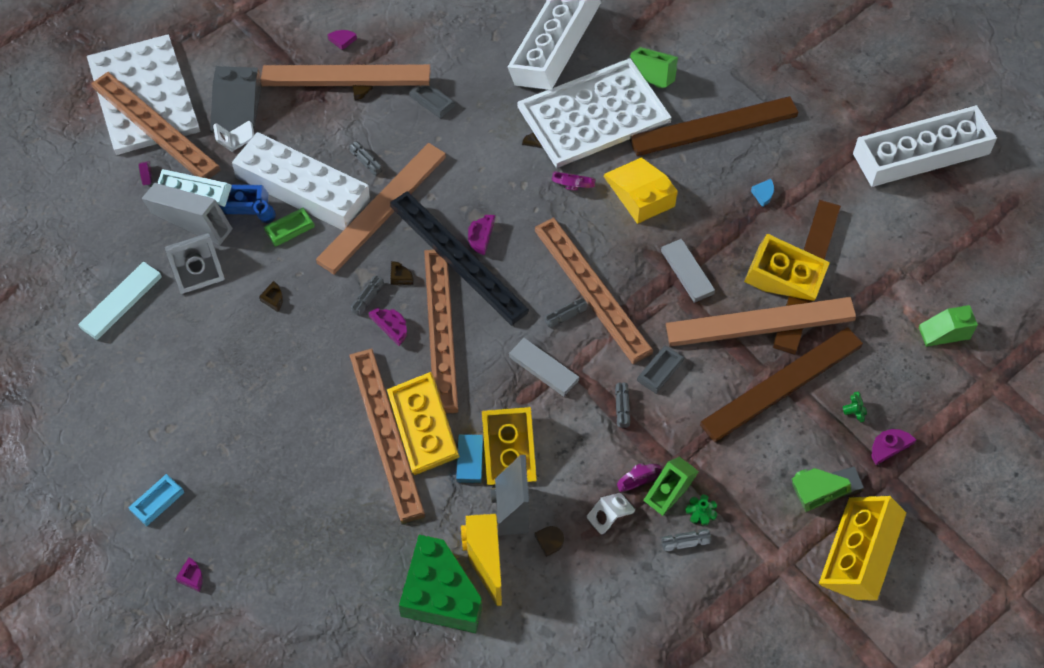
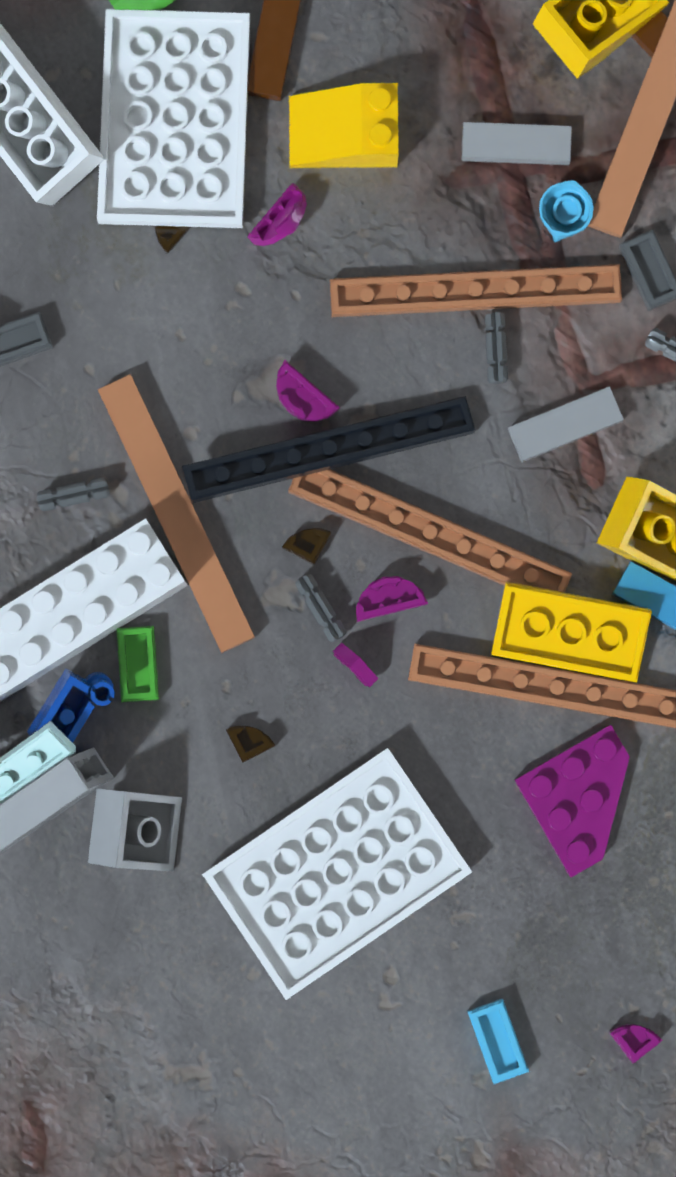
camera: 60 degrees left, 25 degrees up
(120, 300) = (140, 963): light aqua tile -> none
(218, 370) = (337, 873): none -> white plate
(326, 474) = (578, 797): none -> magenta plate
(343, 325) = (355, 664): none -> magenta tile
(664, 307) = (565, 209): none -> medium azure hat

